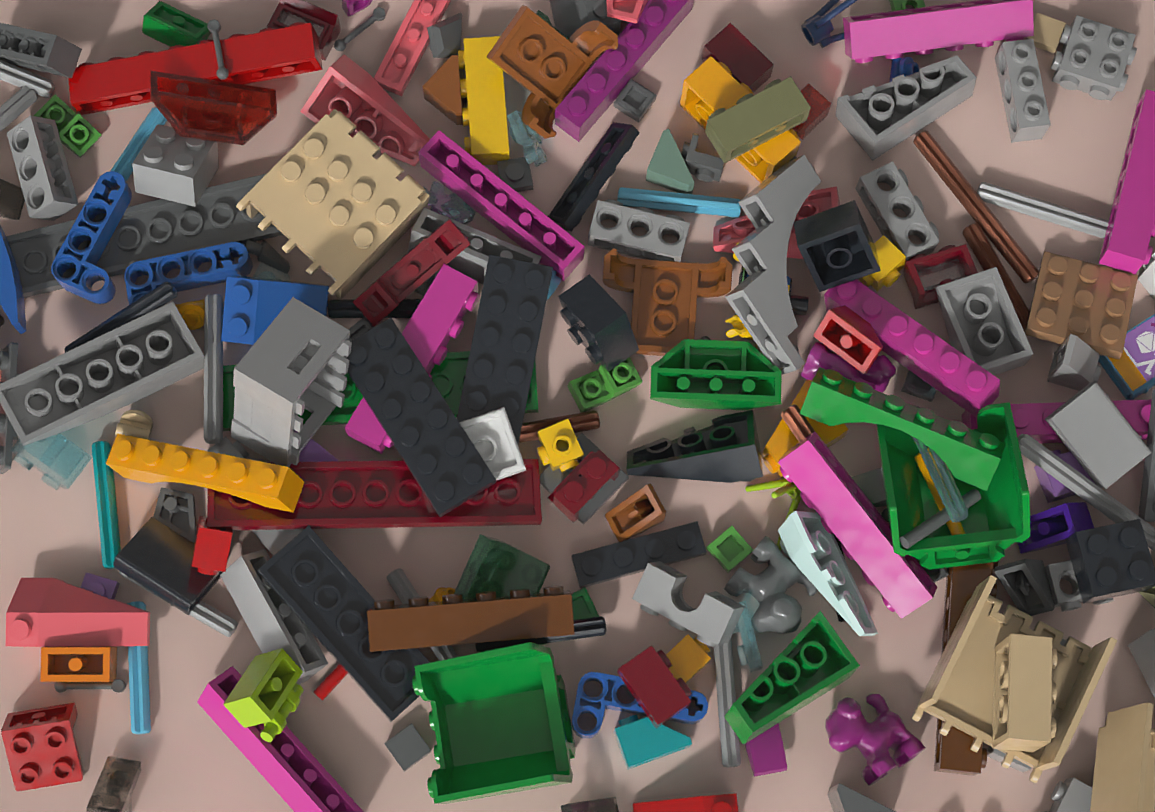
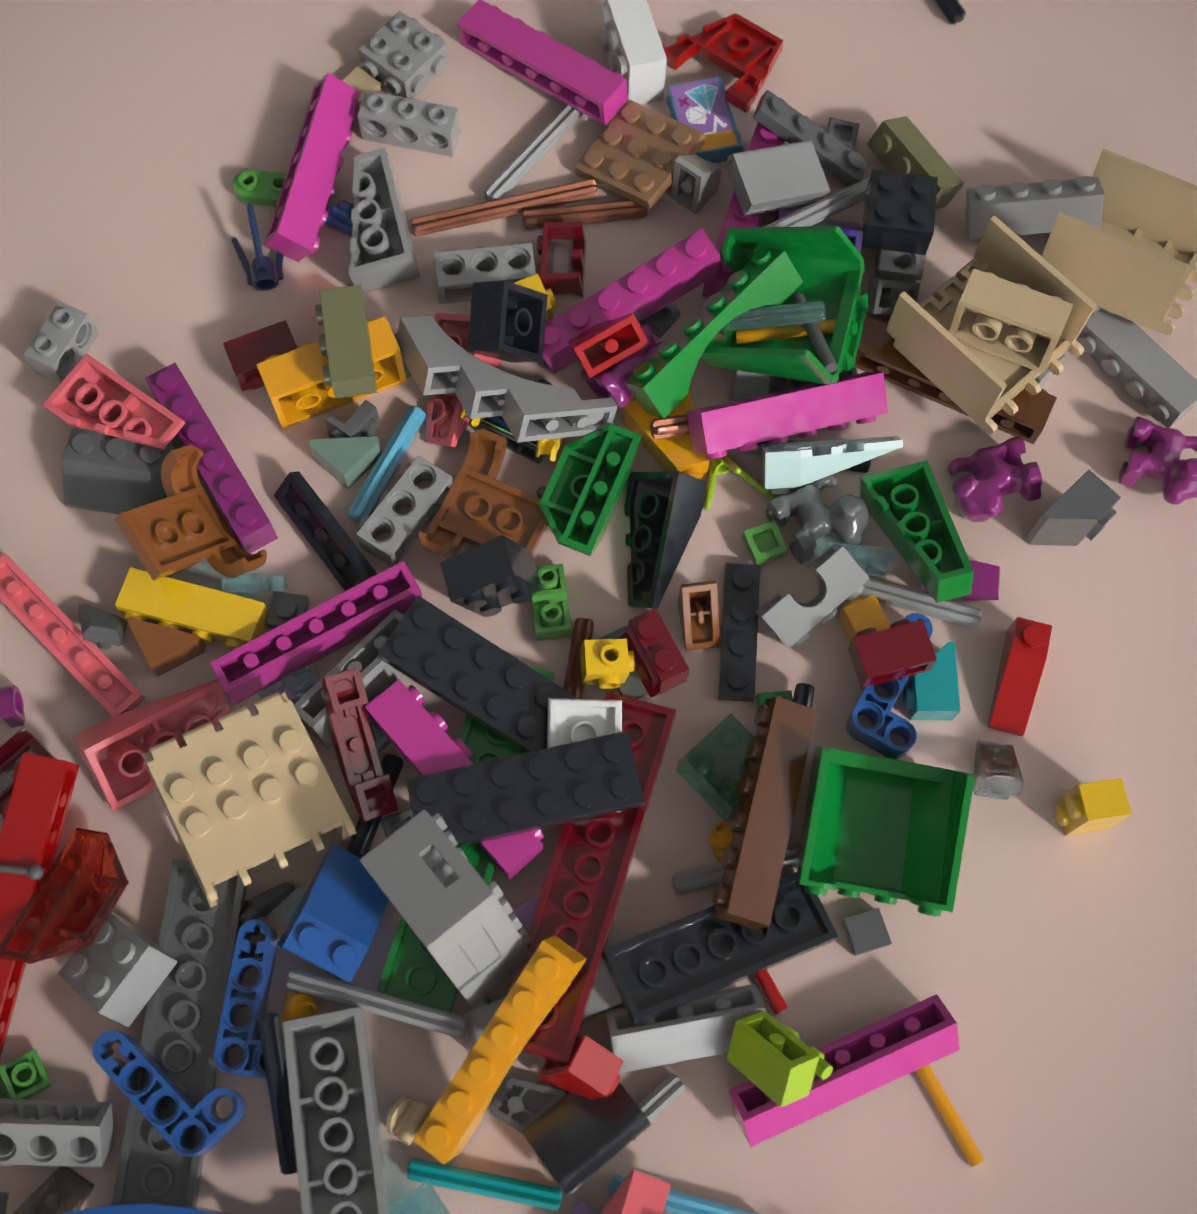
camera: 70 degrees left, 5 degrees down
(125, 161) = (66, 1007): medium azure axle -> none
(378, 14) = (39, 690): dark grey hinge -> none
(635, 100) = (259, 467): dark grey tile -> none
(984, 322) = (625, 233): light grey slope -> none

